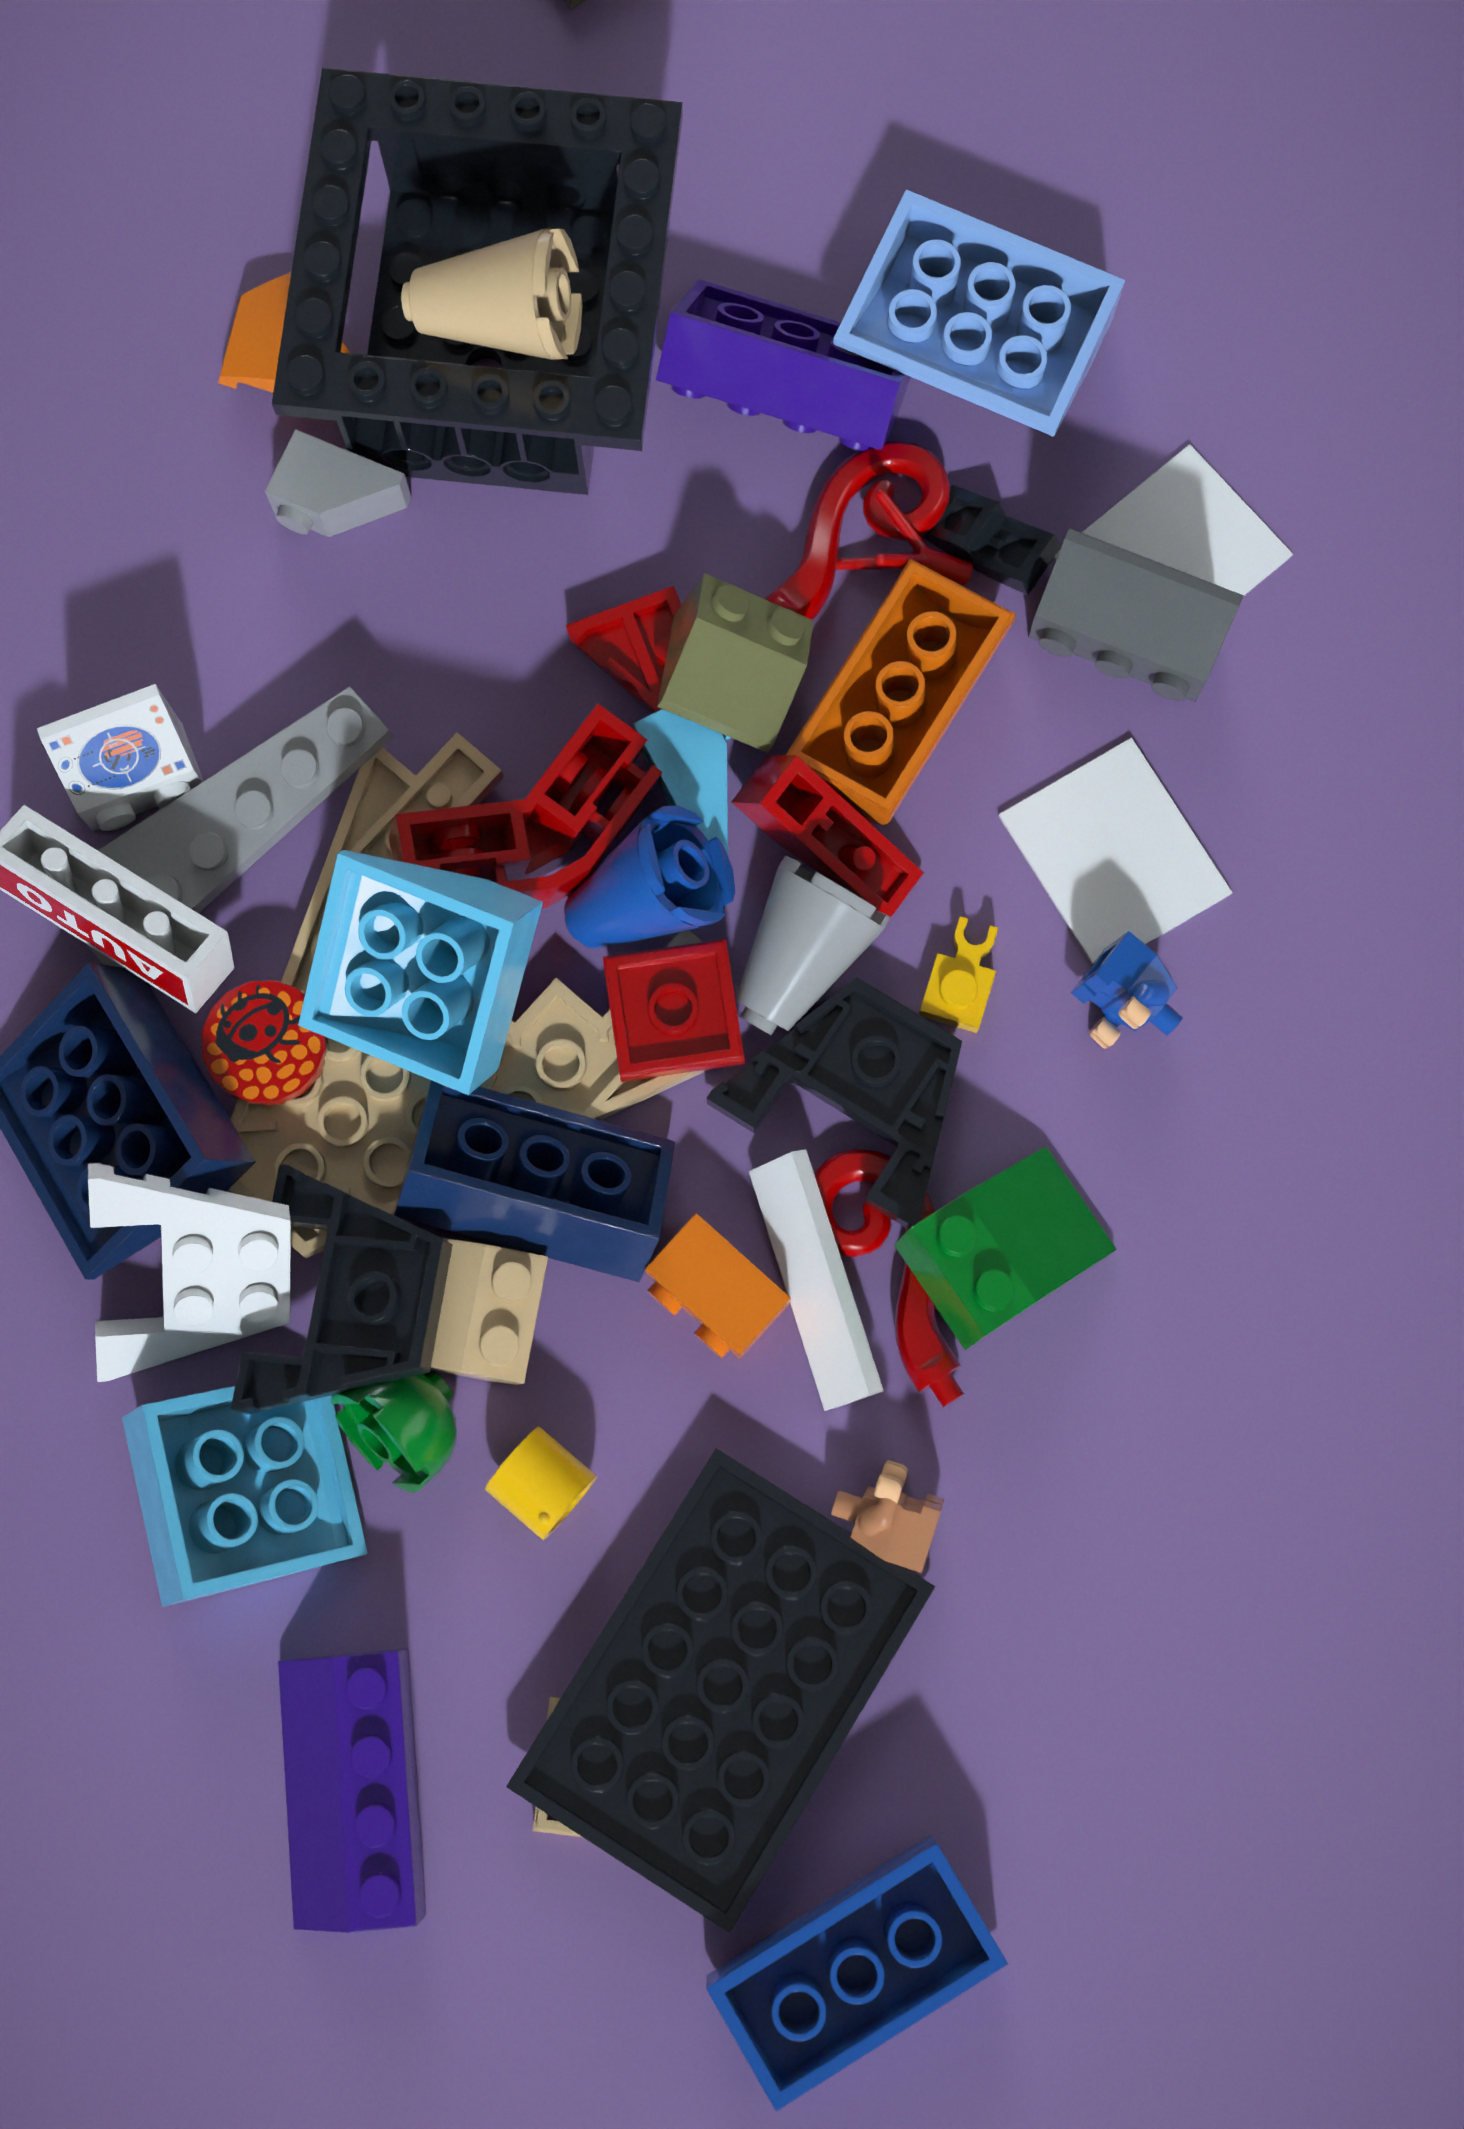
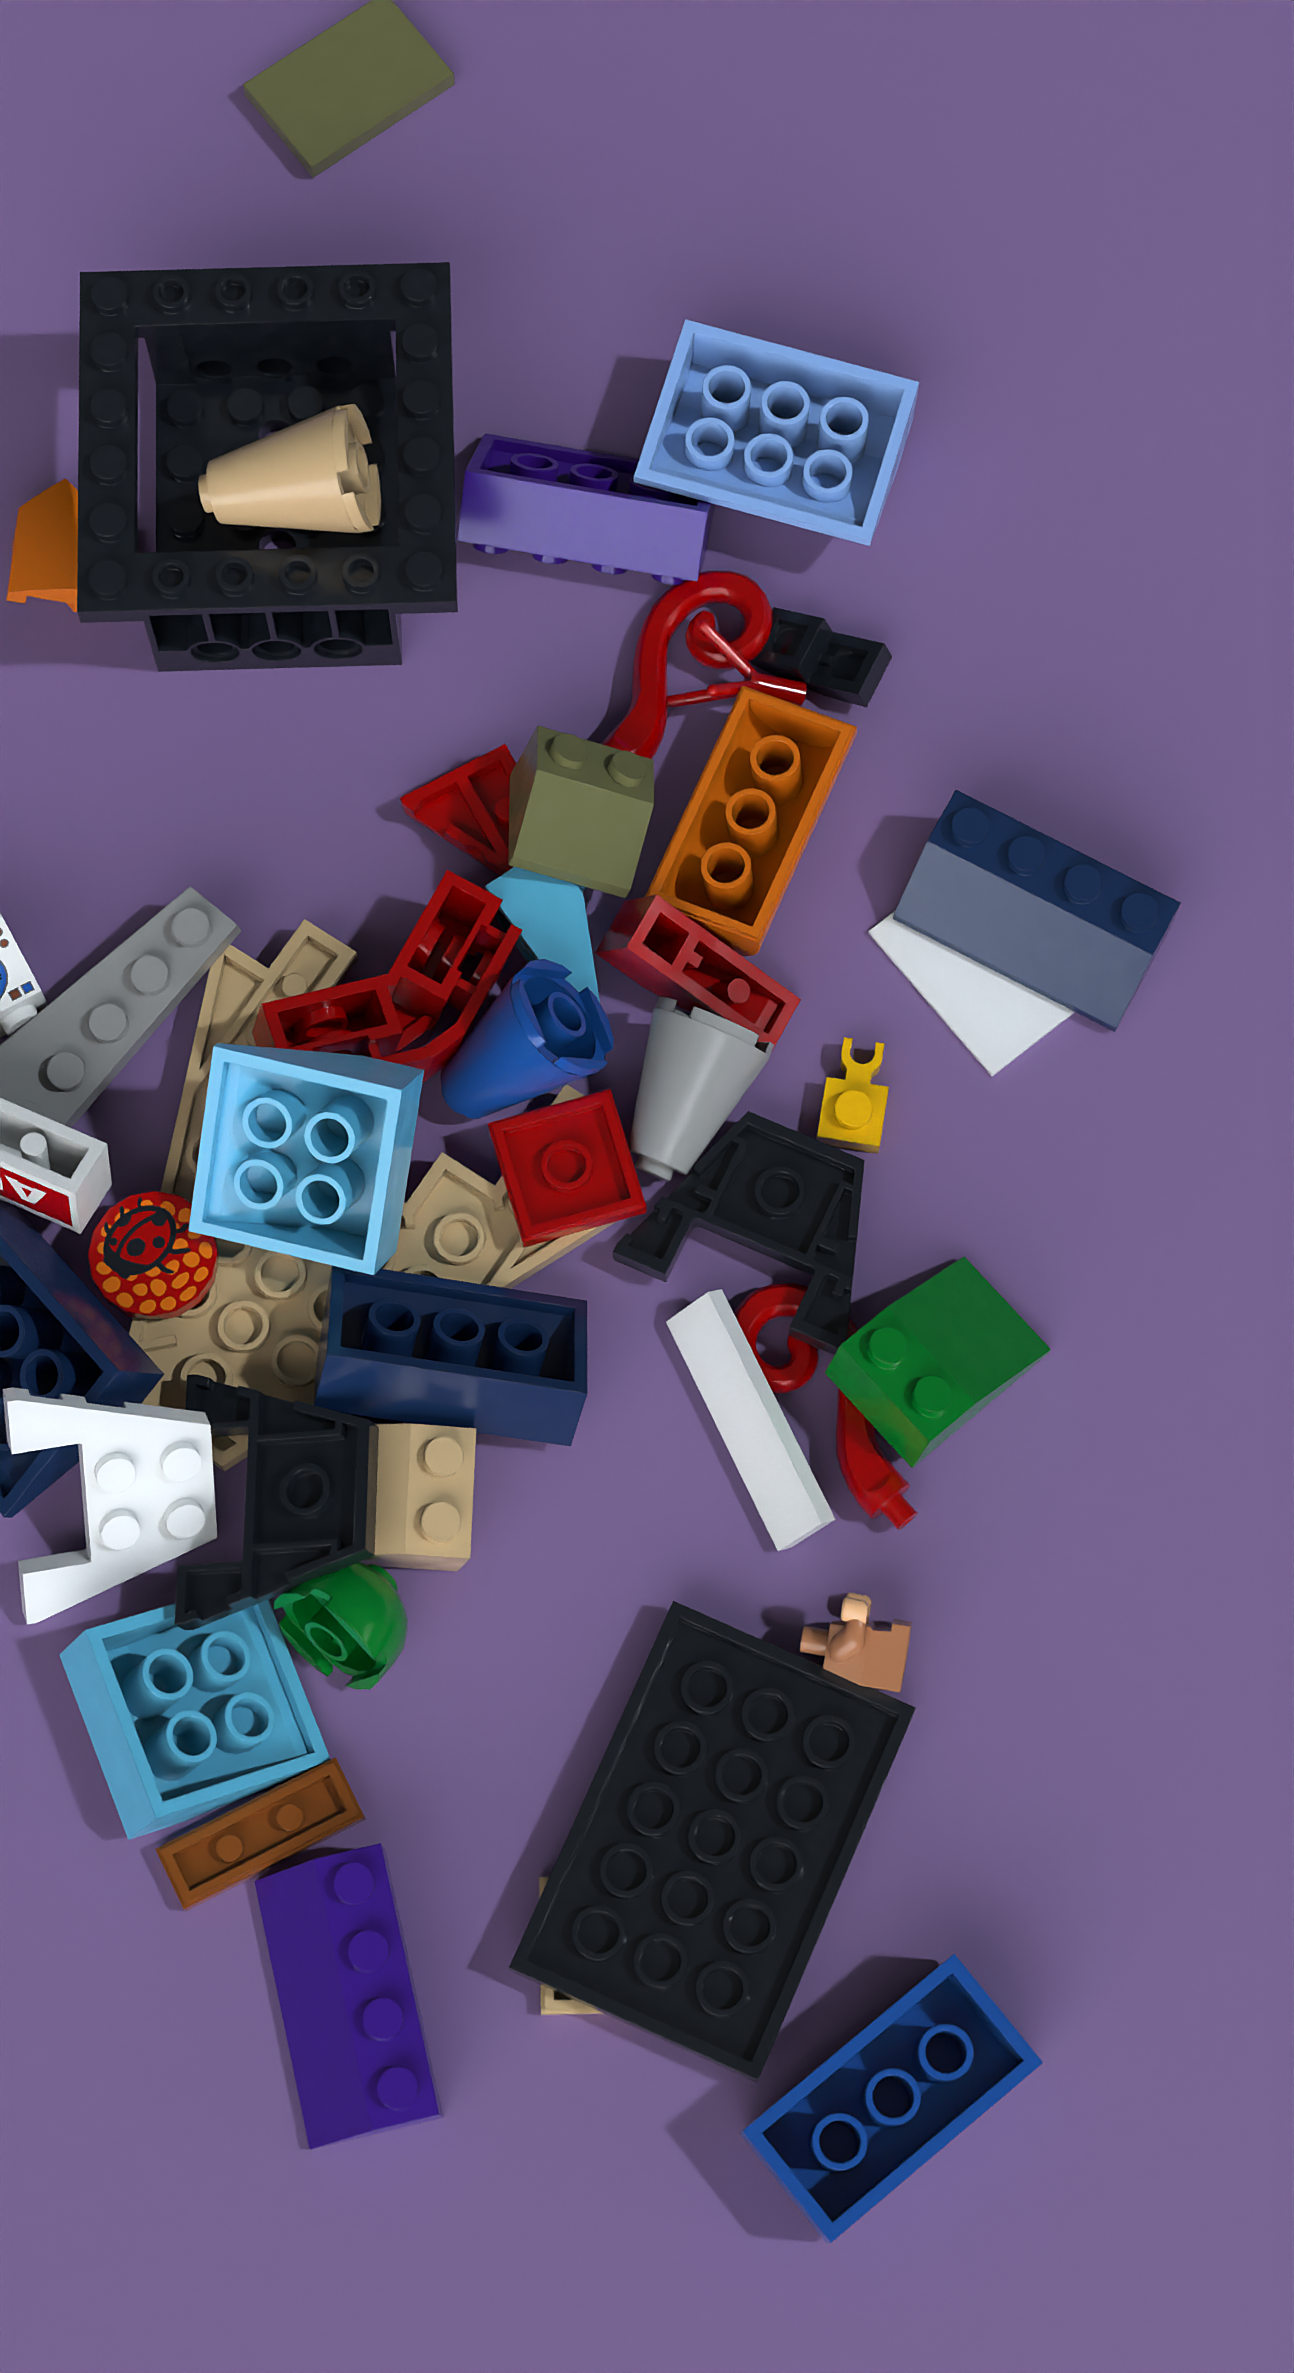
camera: 10 degrees left, 5 degrees down
(290, 1616) = (260, 1834): none -> dark orange tile
(332, 488) = (140, 690): light grey slope -> none
(540, 1483) = (500, 1660): yellow piece -> none
(716, 1288) = (650, 1442): orange brick -> none
(1129, 989) = (1026, 1086): blue piece -> none
(1133, 616) = (975, 714): dark grey slope -> none
(1164, 817) = (1036, 910): none -> dark blue slope
(1193, 525) = (1007, 650): white piece -> none

